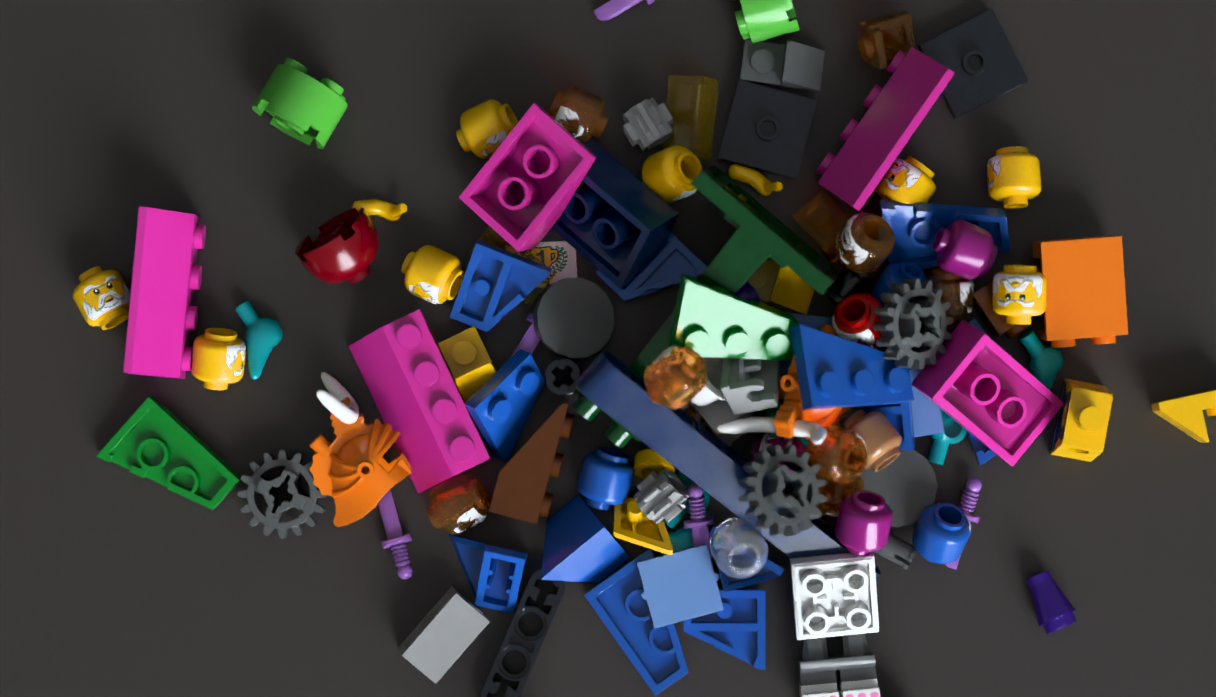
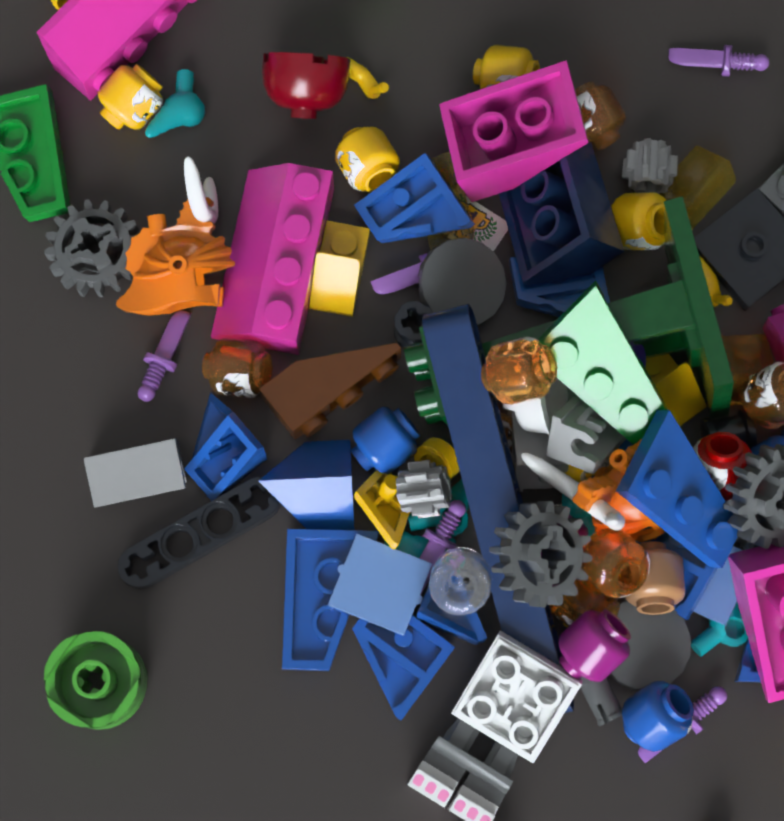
camera: 35 degrees right, 10 degrees down
(506, 402) = (347, 310): blue wing -> none

